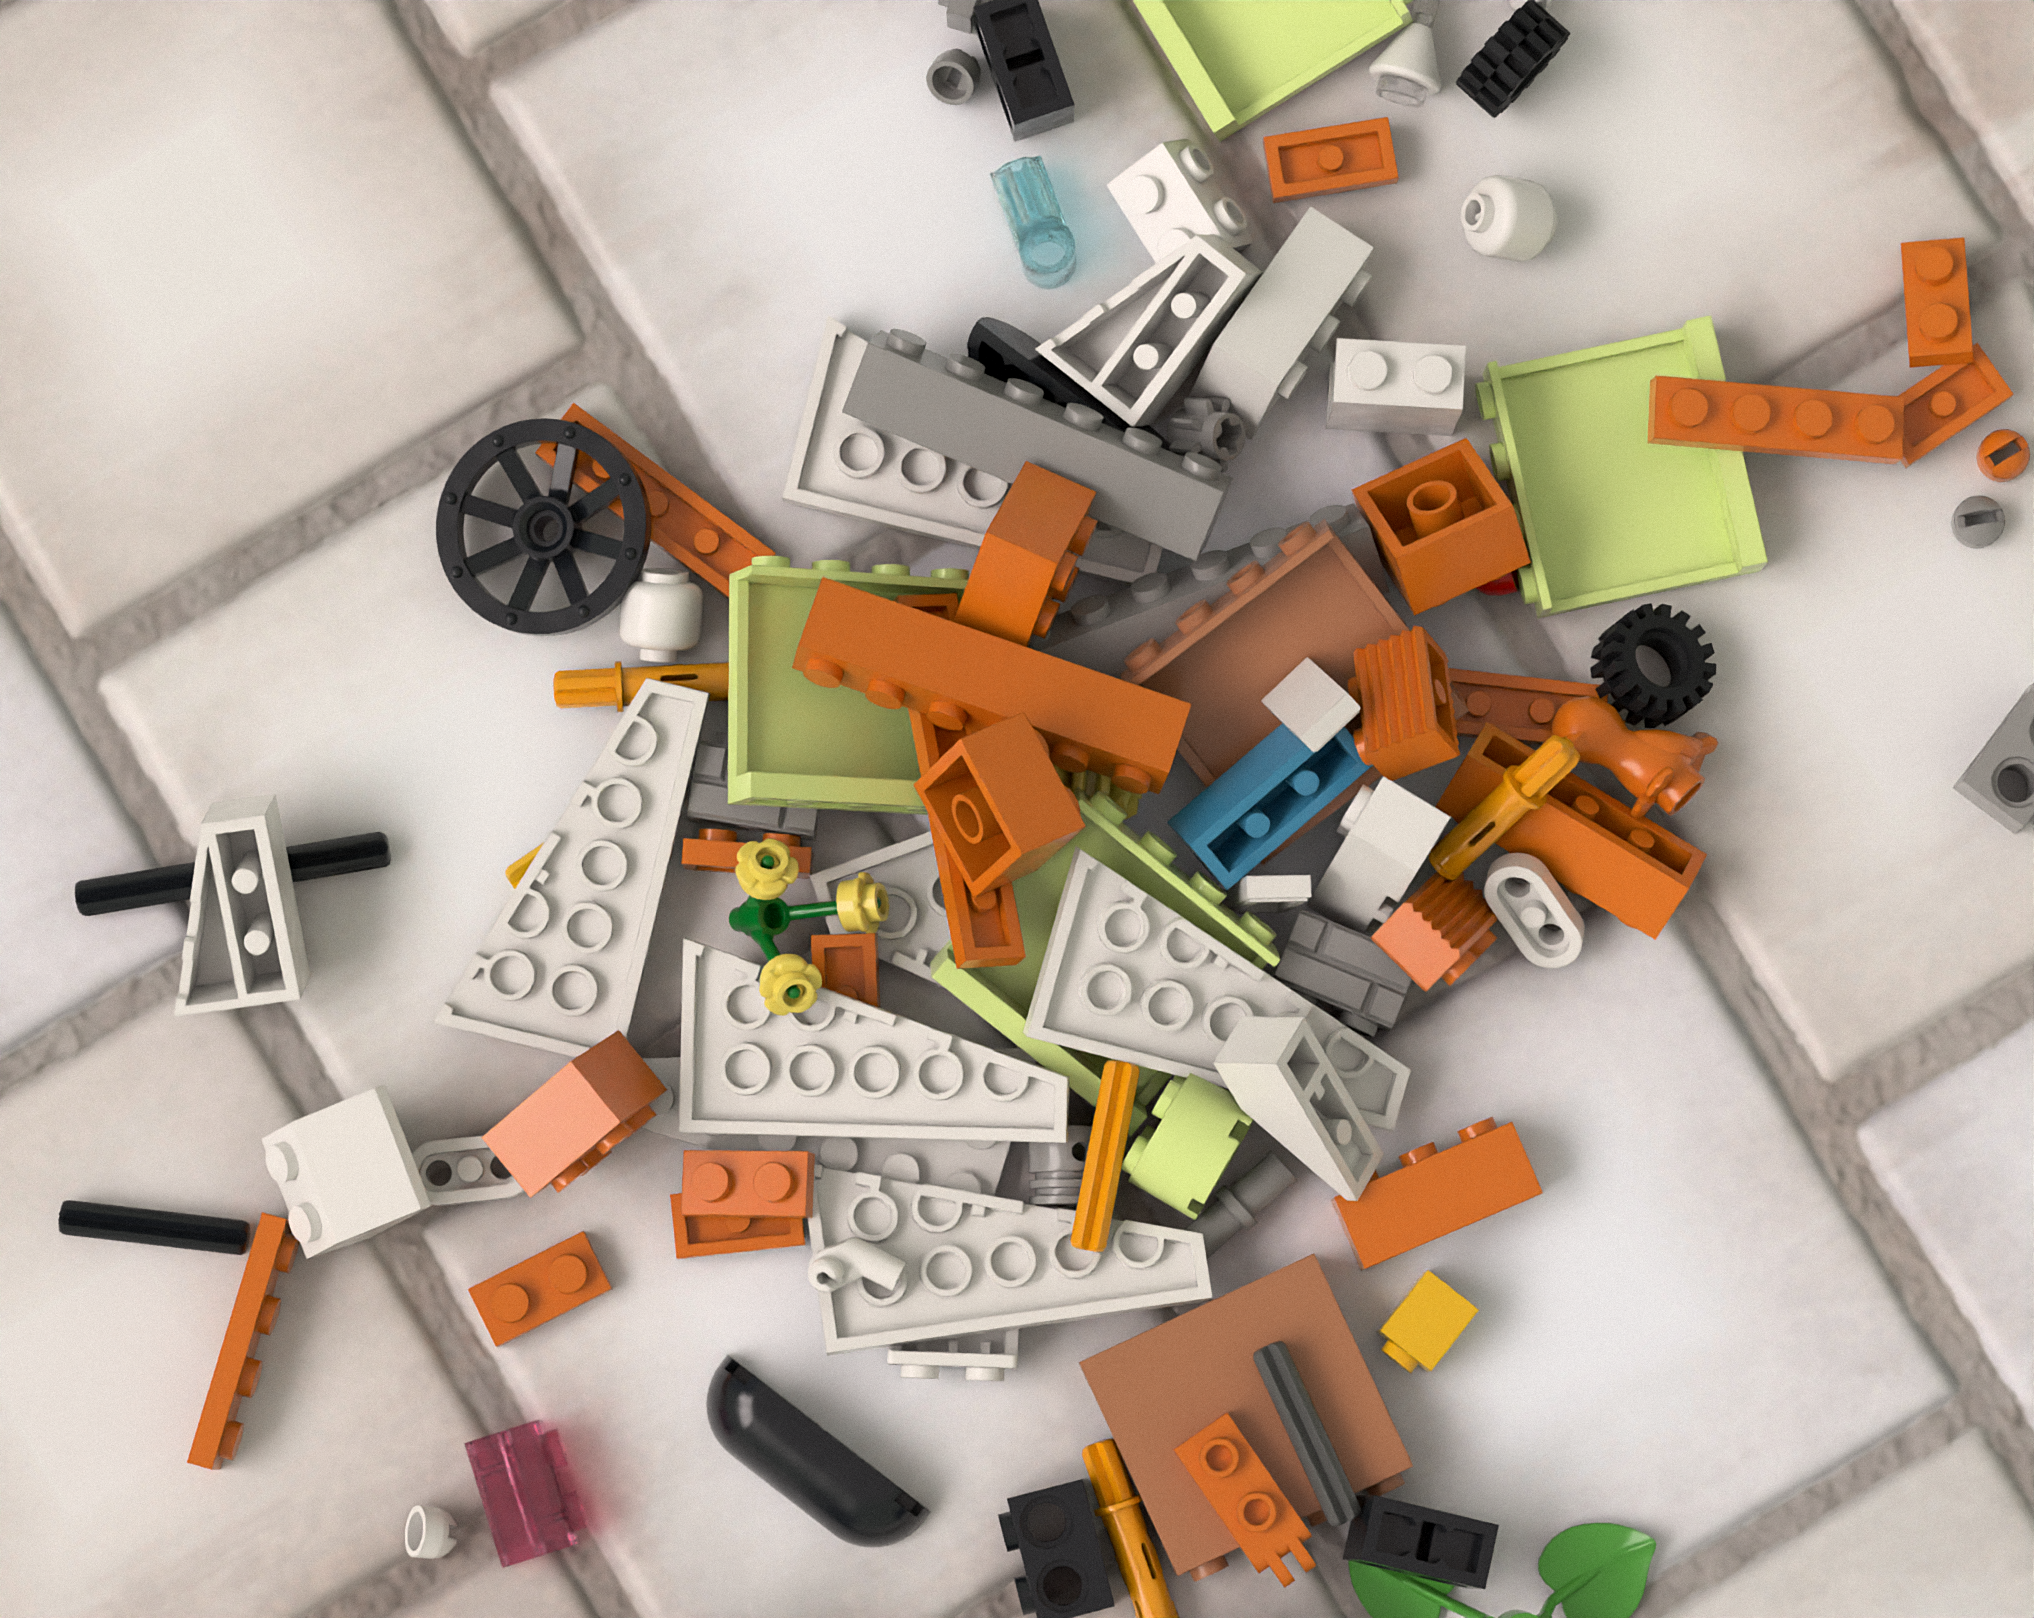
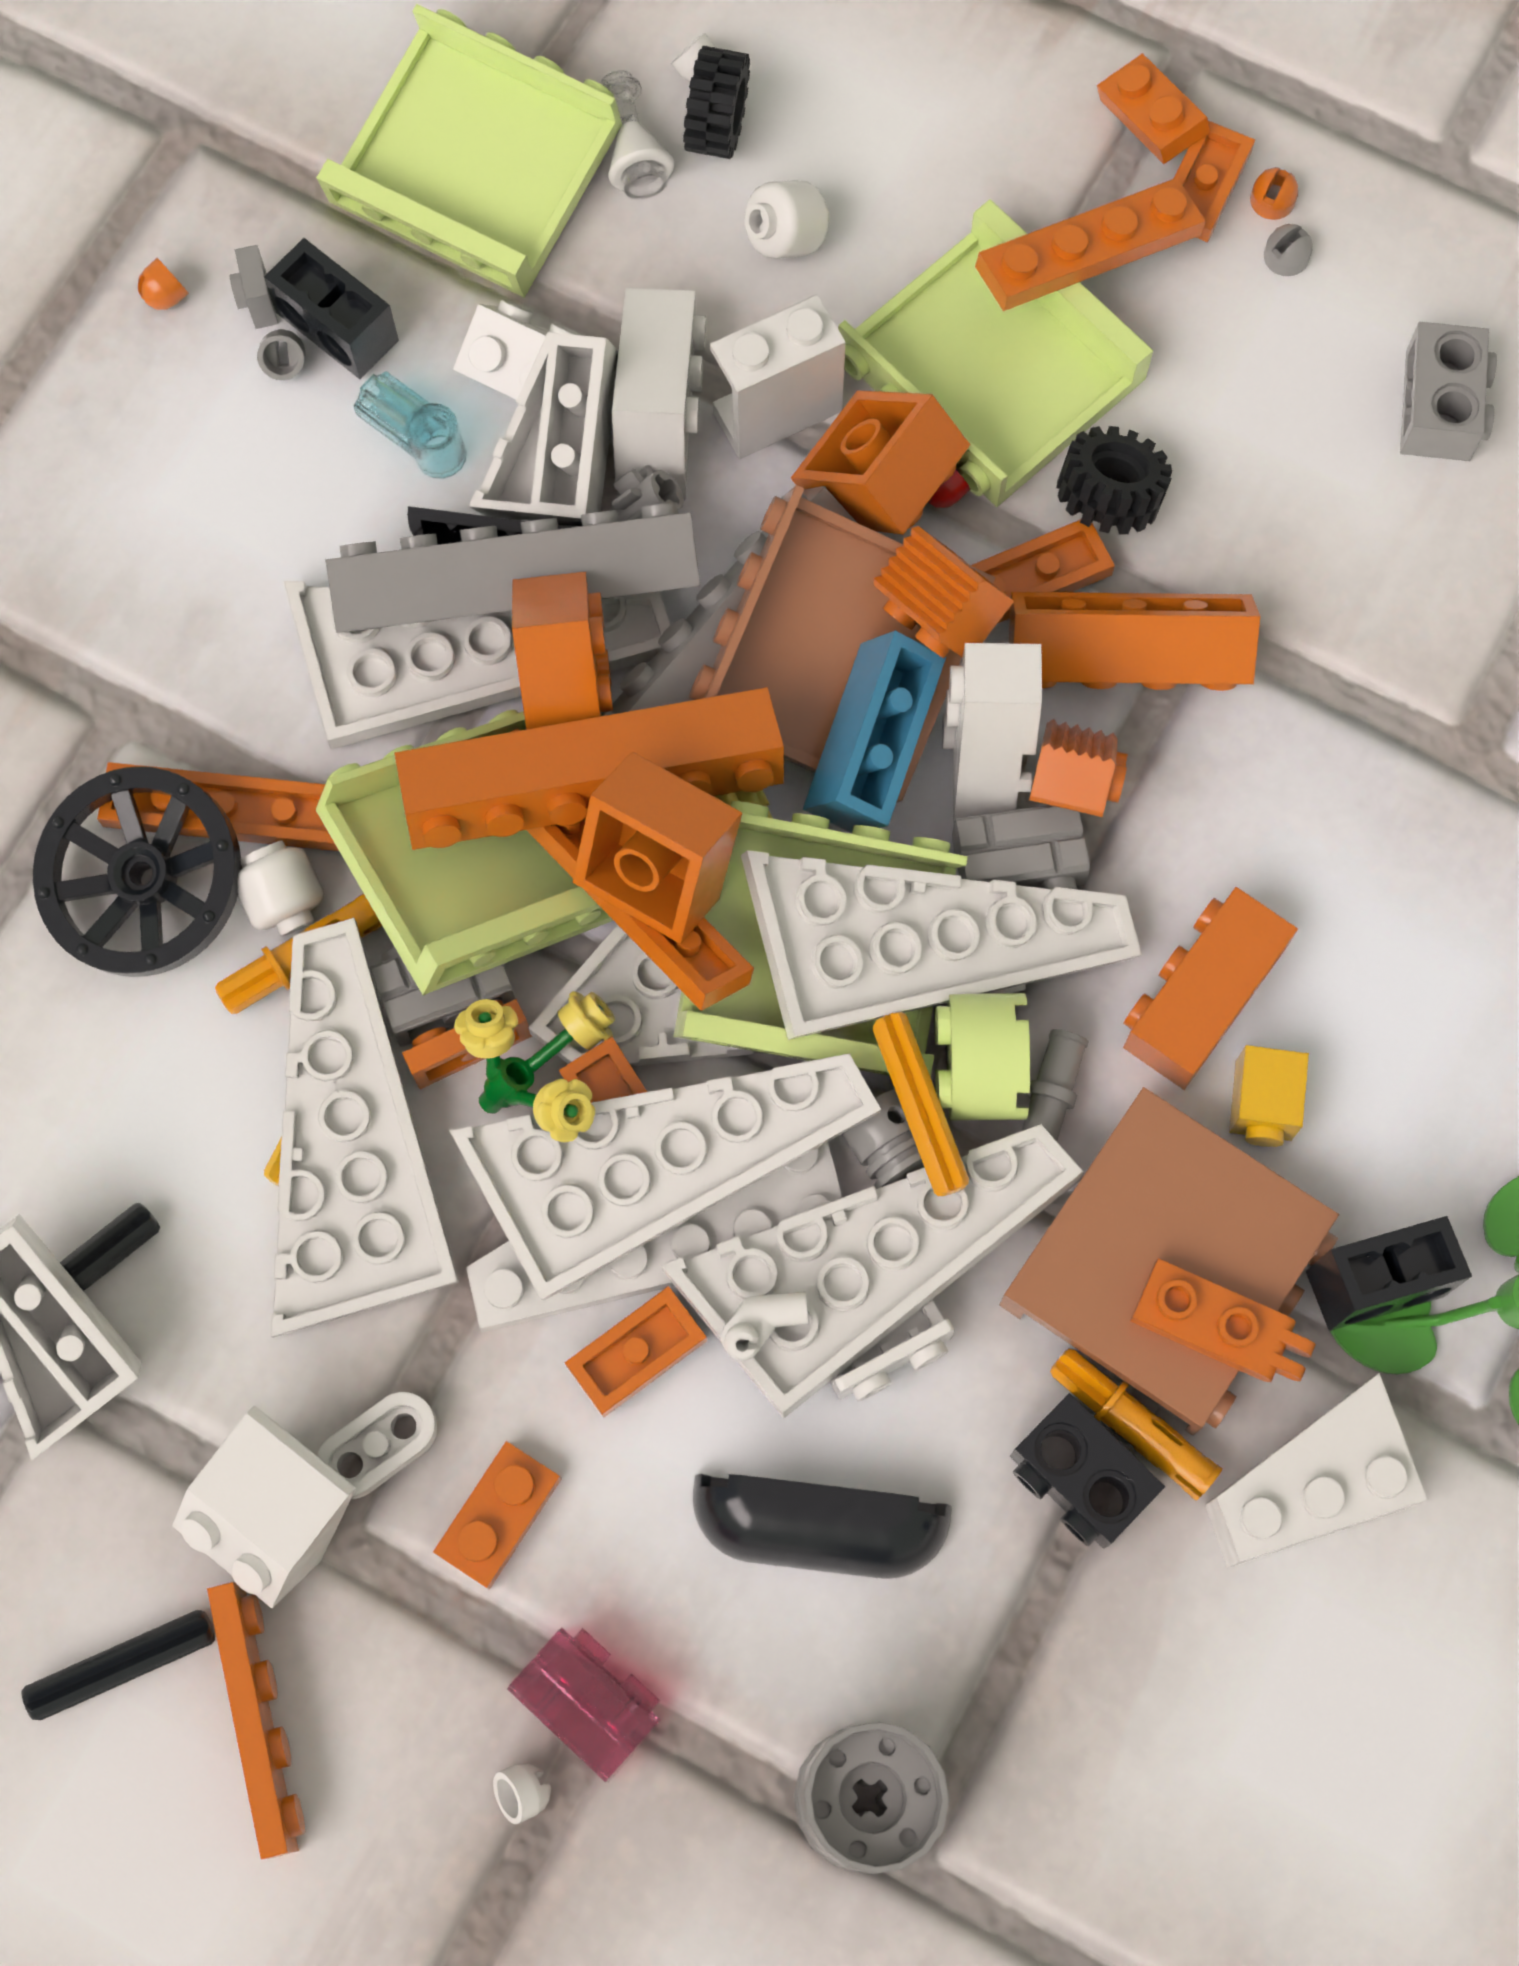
camera: 30 degrees left, 10 degrees down
(577, 1116) = (440, 1336): brick -> none
(747, 1184) = (627, 1310): orange plate -> none
(1268, 893) = (925, 810): white tile -> none
(1298, 1098) = (1051, 958): white slope -> none
(1307, 1433) = (1236, 1237): dark grey axle -> none
(1311, 705) = (866, 636): white tile -> none
(1330, 160) = (619, 257): orange plate -> none
(1521, 790) = (1073, 630): light orange axle -> none
(1531, 905) = (1139, 714): white plate -> none
(1648, 763) = (1158, 549): orange animal -> none

